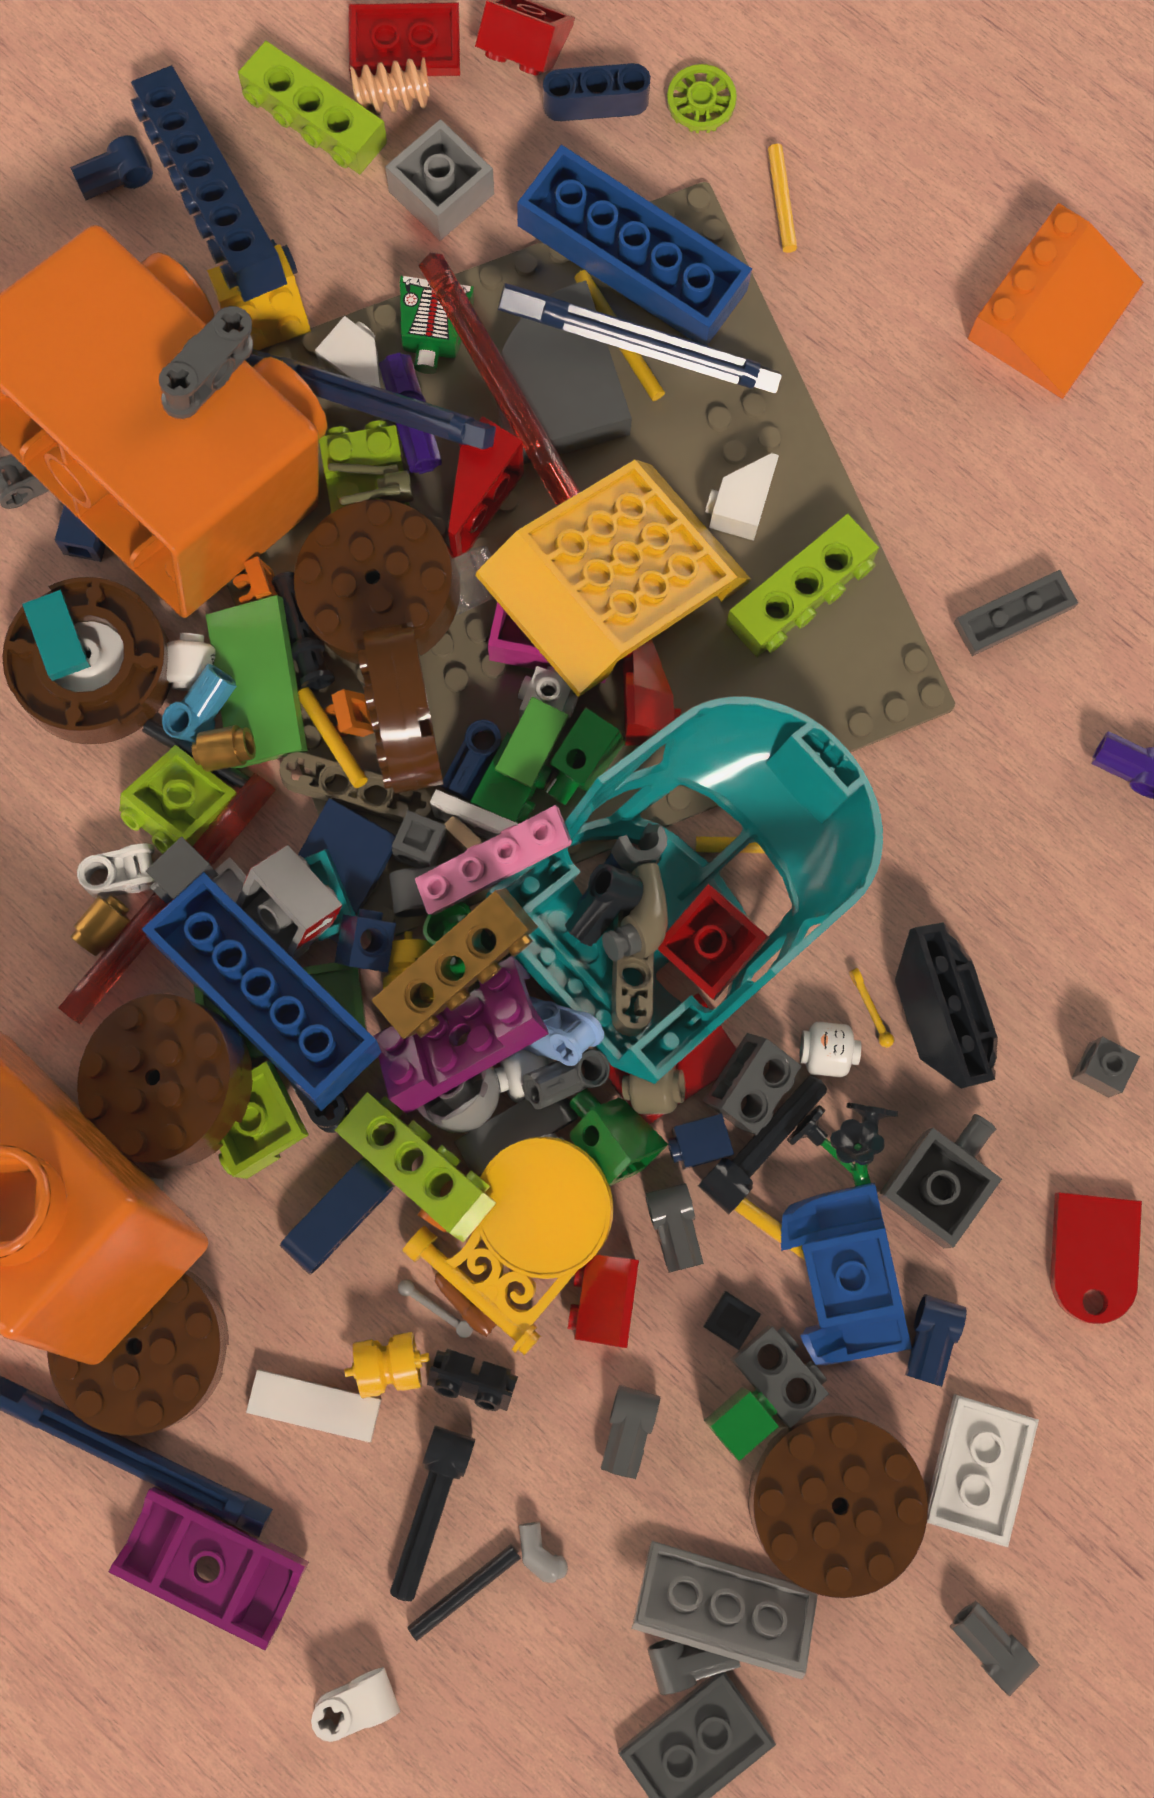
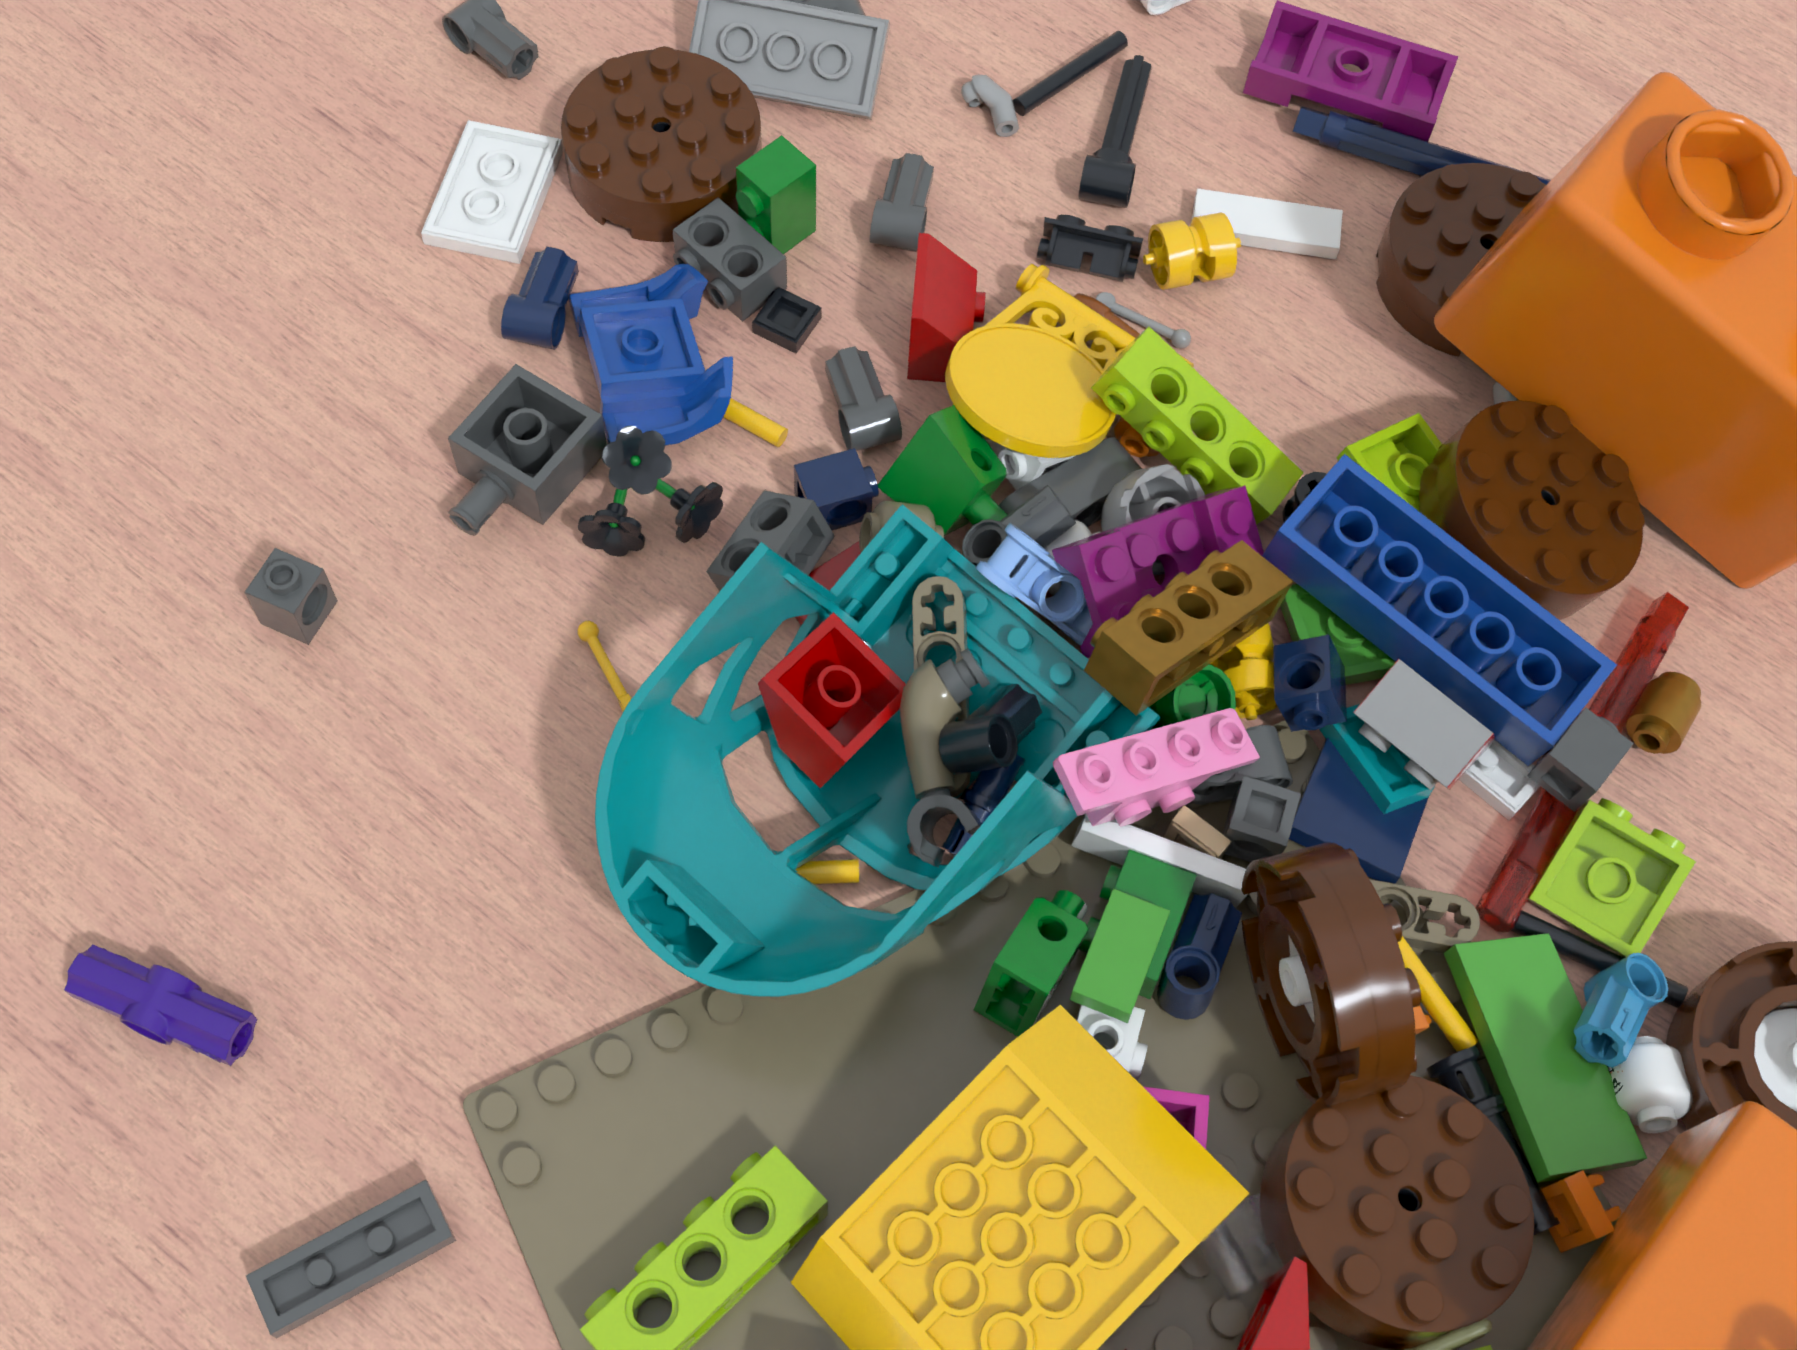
camera: 175 degrees right, 15 degrees down
(122, 871) = (1654, 784): white piece -> none
(223, 748) = (1566, 943): pearl gold brick -> none
(336, 1215) = (1288, 387): dark blue beam -> none
(646, 695) = (944, 1037): red wedge -> none
(730, 1180) = (788, 444): black axle -> none
(829, 1049) = (665, 602): white head -> none
(946, 1007) = (500, 649): black wedge -> none
(1095, 1250) = (329, 407): red tile -> none

